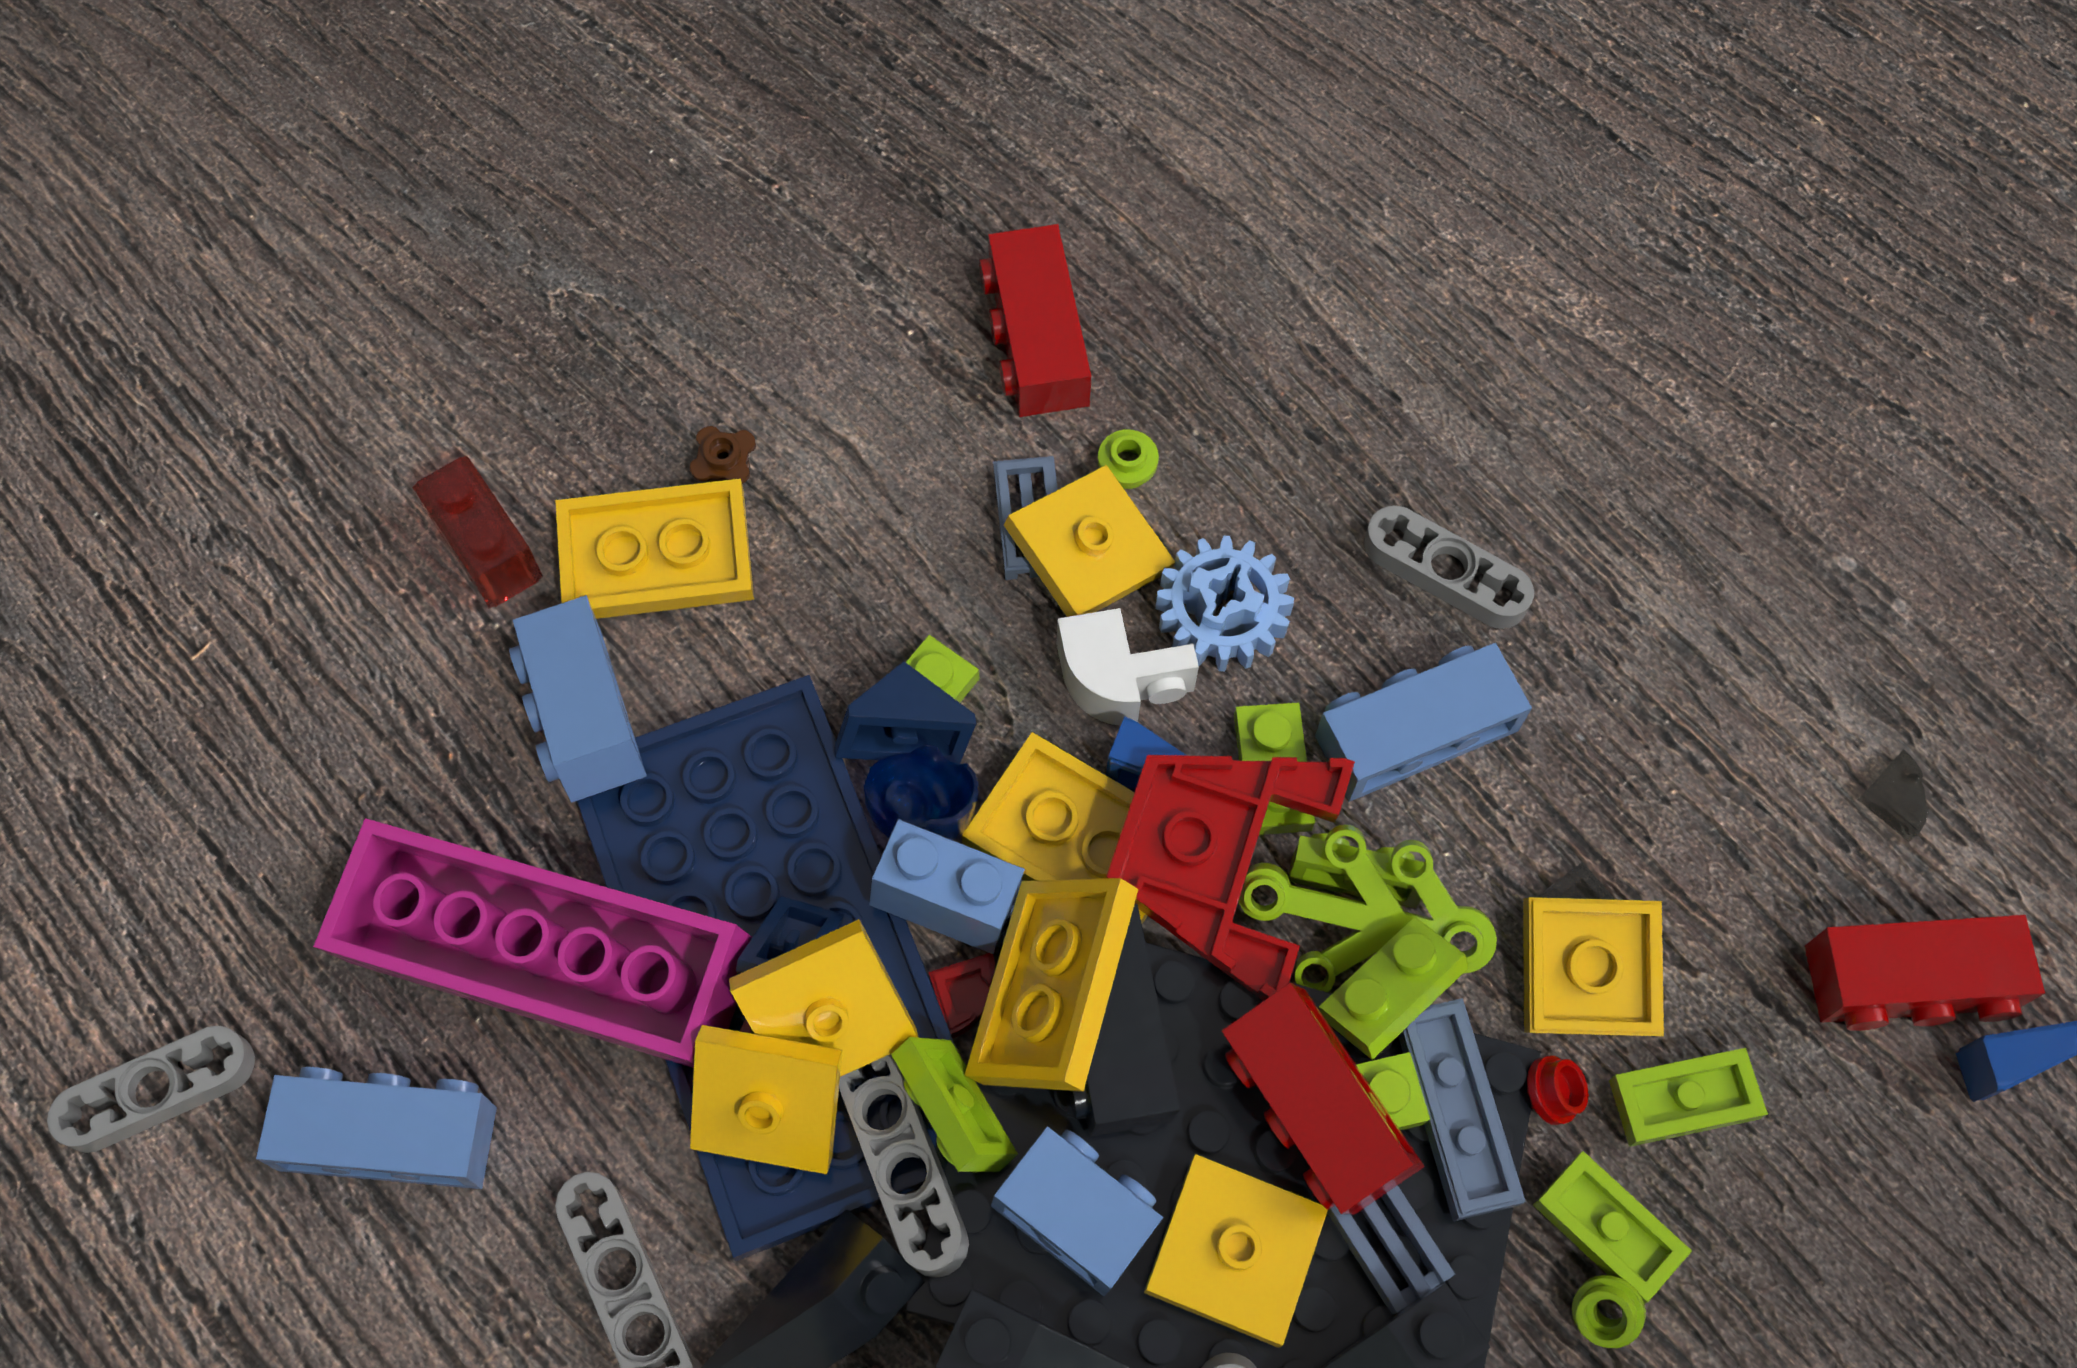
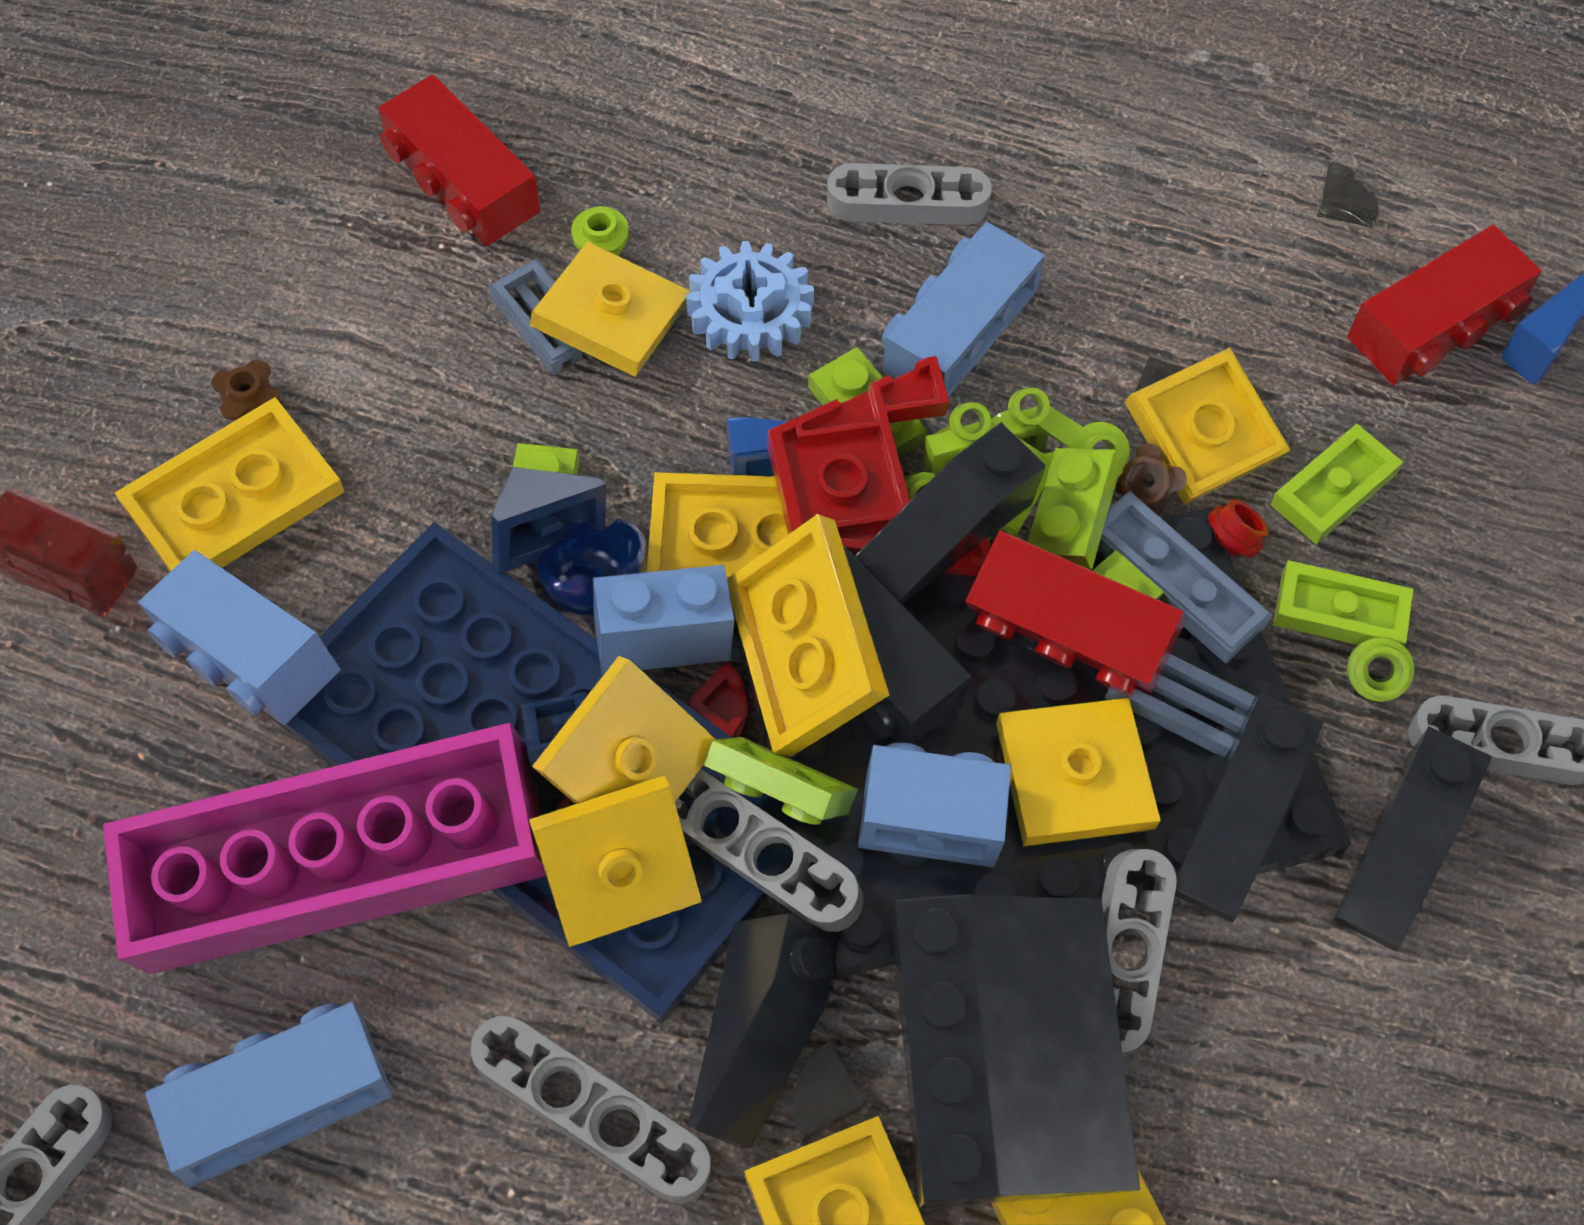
camera: 30 degrees left, 5 degrees down
(1109, 679) = (692, 401): white brick -> none
(1260, 938) = (954, 513): none -> black slope
(1482, 995) = (1147, 462): none -> reddish brown plate

